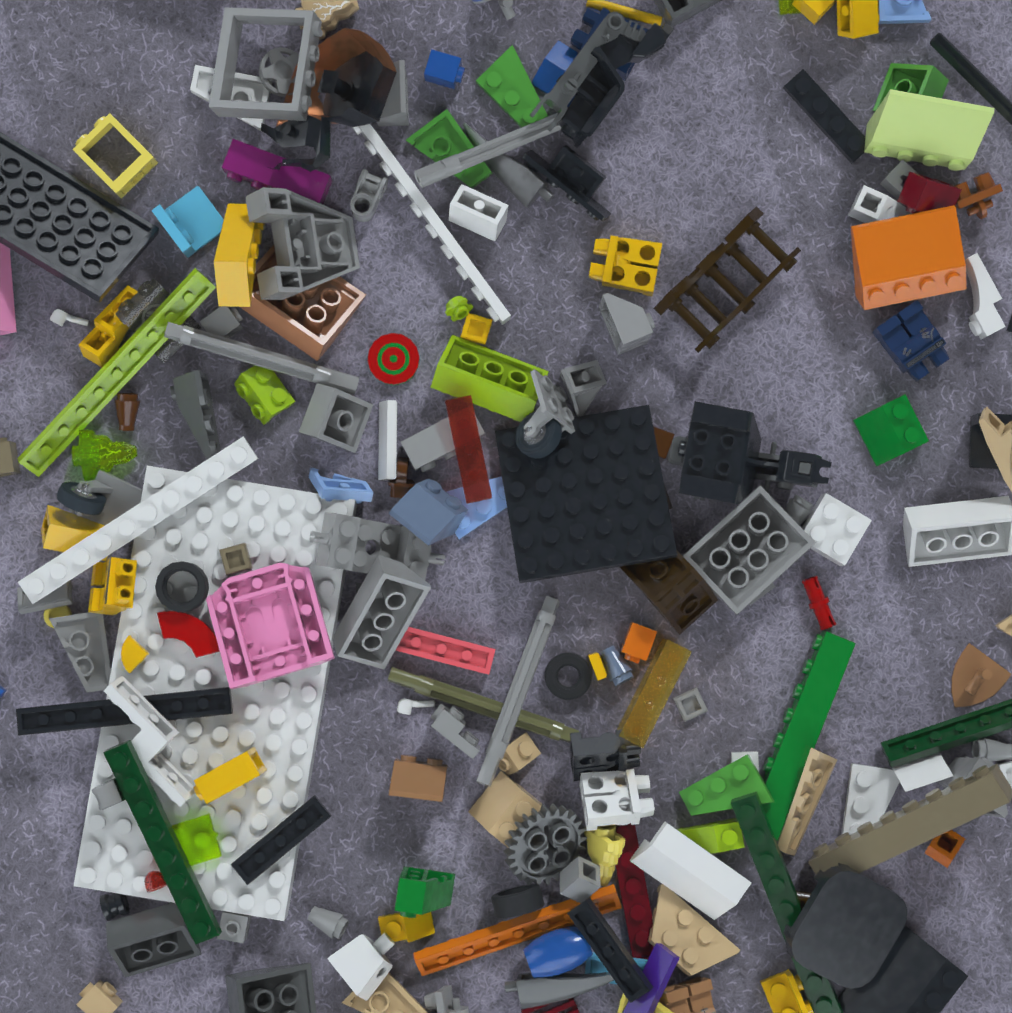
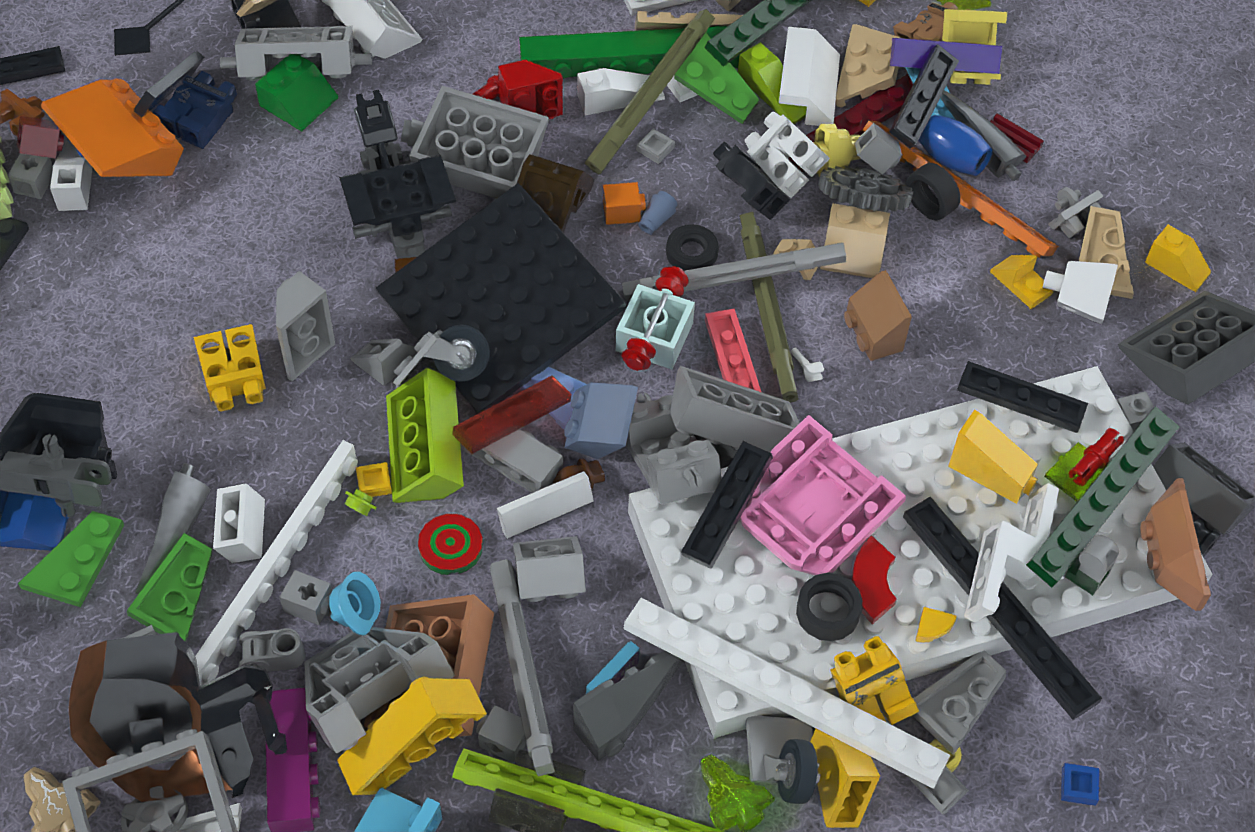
camera: 120 degrees left, 30 degrees down
(100, 866) = (1175, 548): none -> nougat wedge
(127, 410) = (664, 791): reddish brown cone -> none
(154, 881) = (1149, 487): clear red hinge -> none
(196, 857) = (1096, 457): none -> red pin
(227, 417) = (616, 668): none -> medium azure tile
(236, 559) = (764, 571): dark tan tile -> none
(263, 393) = (563, 654): lime bracket -> none
(296, 558) = (727, 504): none -> black tile
(329, 922) = (1068, 340): light grey cone -> none
(340, 487) = (624, 525): light blue wing -> none
(369, 265) = (355, 603): none -> medium azure piece
(396, 228) = (306, 597): none -> light grey brick
(423, 891) = (983, 265): green wedge -> none
(444, 69) = (75, 634): blue brick -> none
(449, 724) = (805, 306): light grey plate -> none
(471, 157) = (166, 541): light grey piece -> none
(499, 601) = (656, 322): none -> light aqua brick
(573, 176) = (151, 457): black bracket -> none
(597, 666) = (666, 225): yellow tile -> none
(653, 692) = (666, 141): clear yellow fence -> none
(709, 268) = (240, 299): dark brown fence -> none
(741, 726) = (649, 92): none -> olive piece
(762, 704) = (608, 89): none -> white slope
(787, 618) = (531, 88): none -> red slope
(835, 529) = (415, 91): white brick -> none
(923, 470) = (256, 45): none -> light grey brick
(937, 322) = (168, 84): none -> black tile
(985, 316) = (141, 66): white slope -> none

